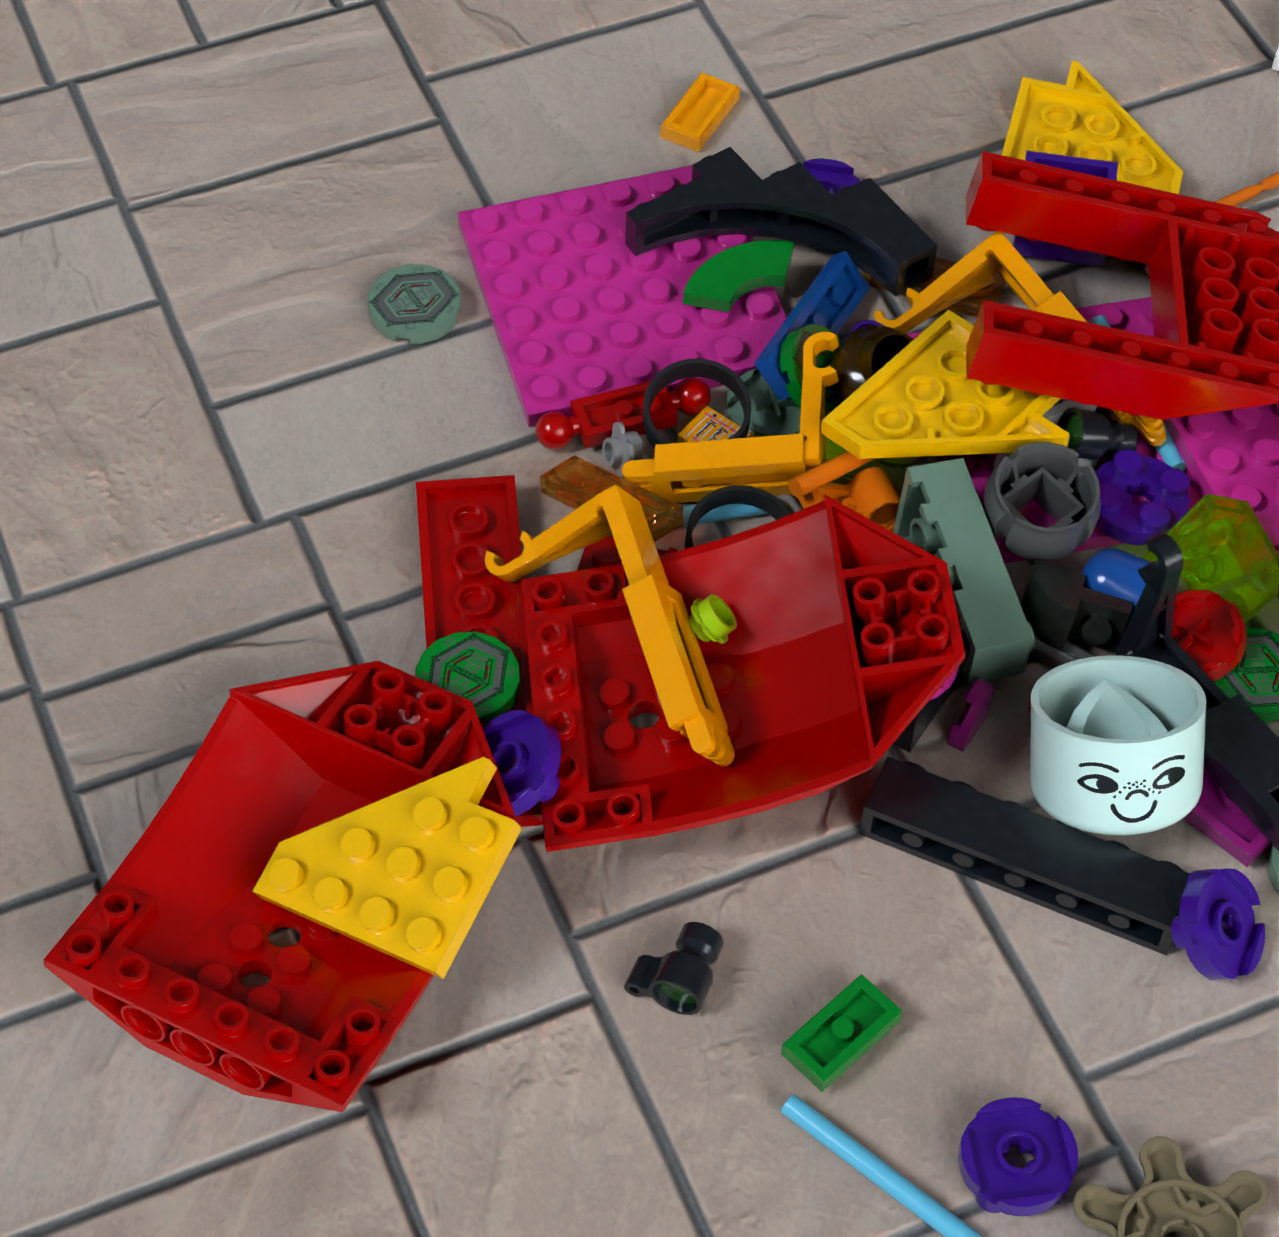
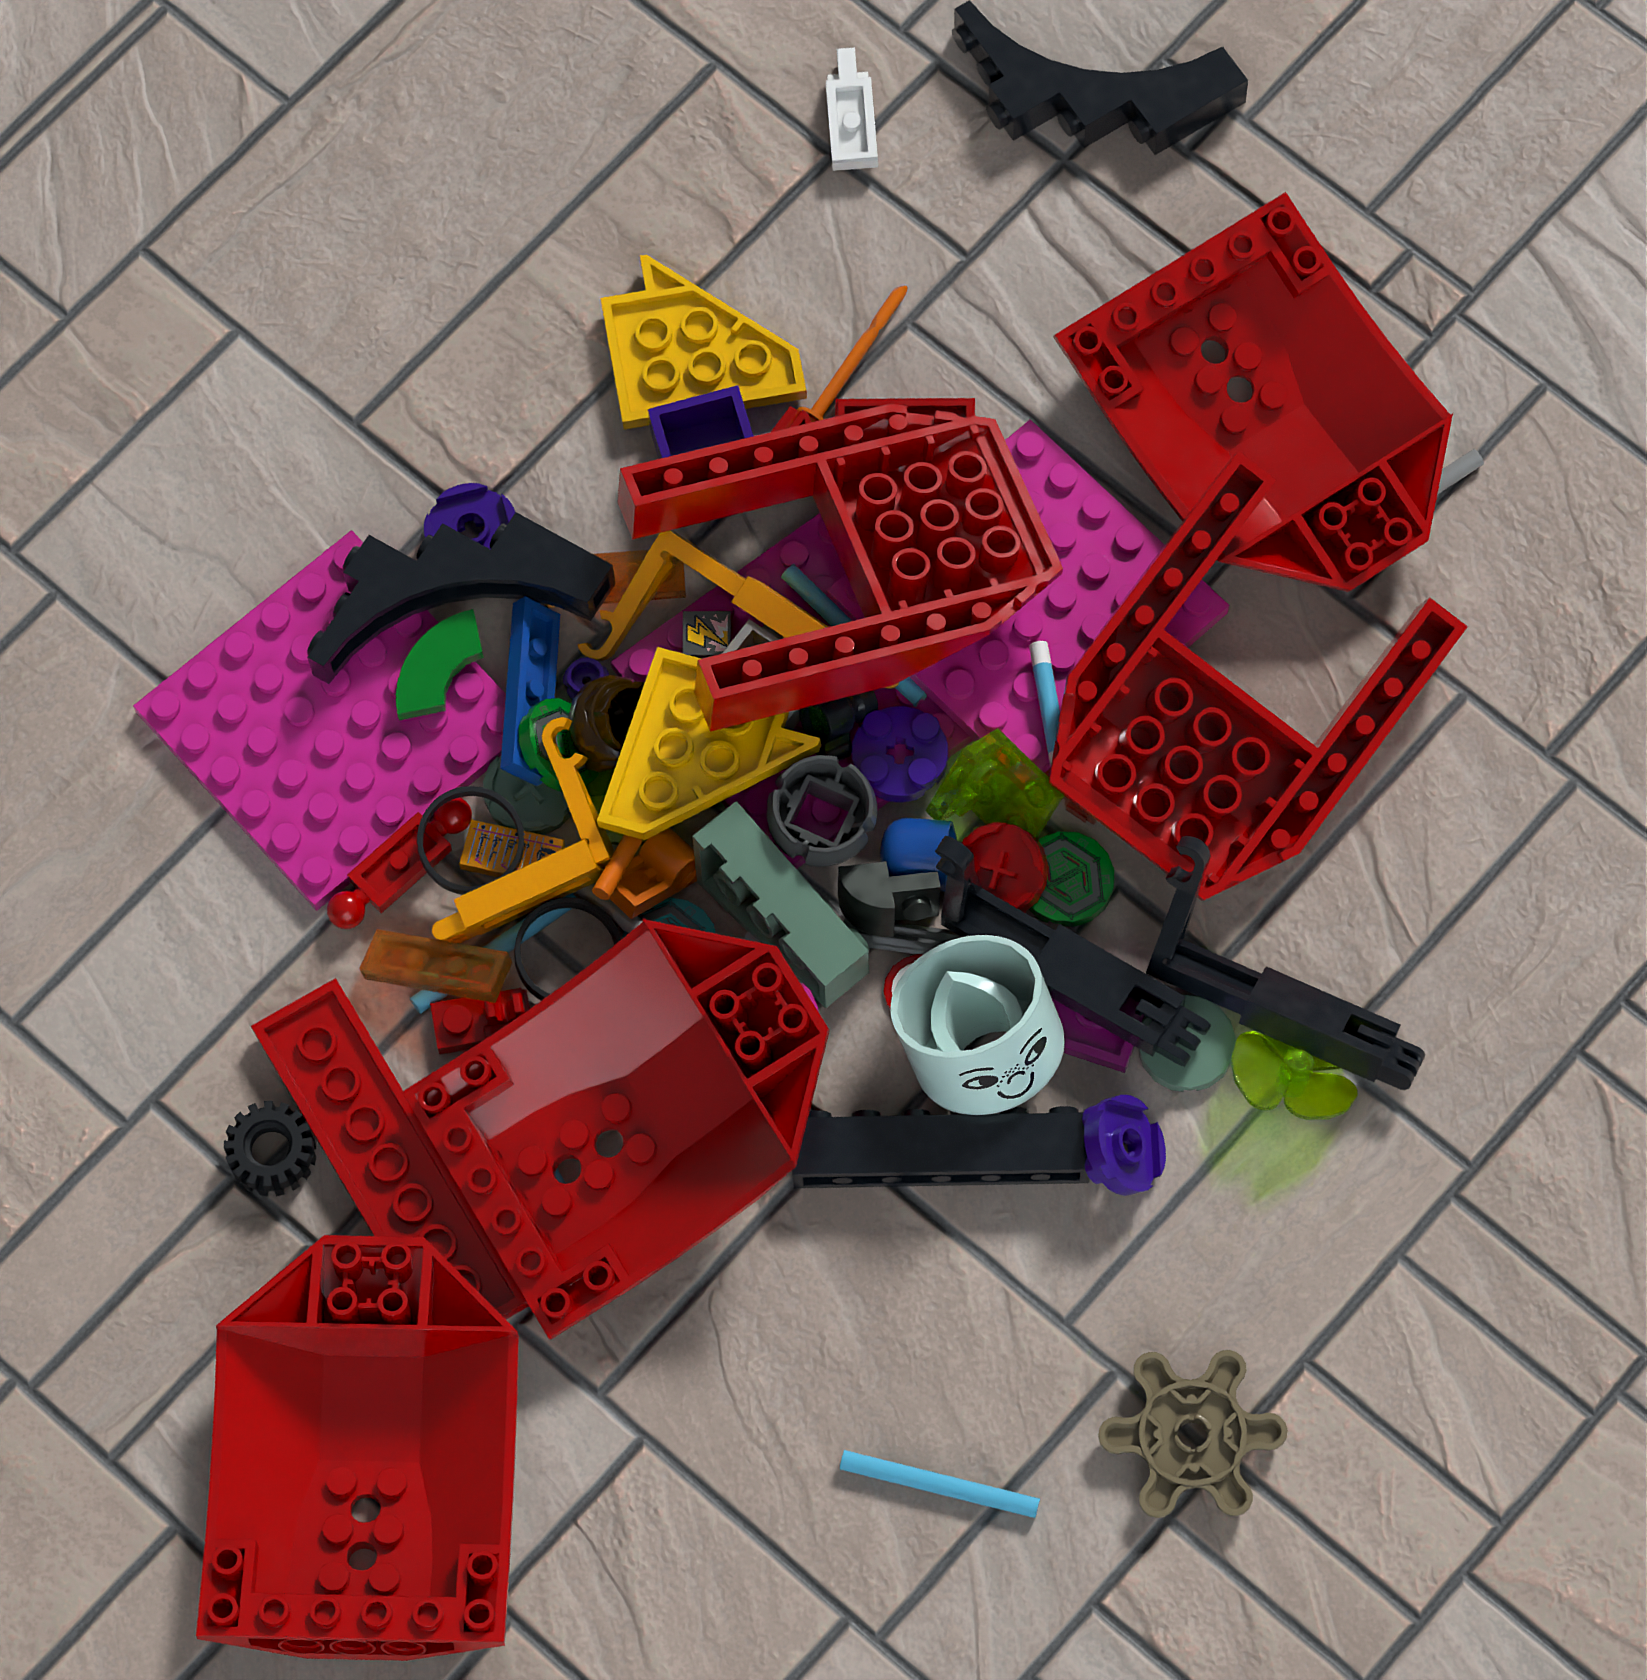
camera: 20 degrees left, 15 degrees up
(376, 611) = (261, 1121): none -> black tyre
(400, 869) = (442, 1420): yellow wing -> none
(414, 303) = (144, 826): sand green tile -> none
(475, 669) = (401, 1200): tile -> none
(537, 753) = (506, 1262): dark purple plate -> none
(621, 448) = (419, 905): light grey plate -> none
(654, 606) = (539, 1080): light orange hinge -> none
(681, 976) = (708, 1394): black piece -> none
(700, 112) = (304, 473): light orange tile -> none
(712, 619) = (590, 1063): lime plate -> none
(841, 1032) = (859, 1380): green plate -> none
(976, 712) = (842, 1028): magenta tile -> none
(1000, 1184) = (1048, 1393): dark purple plate -> none

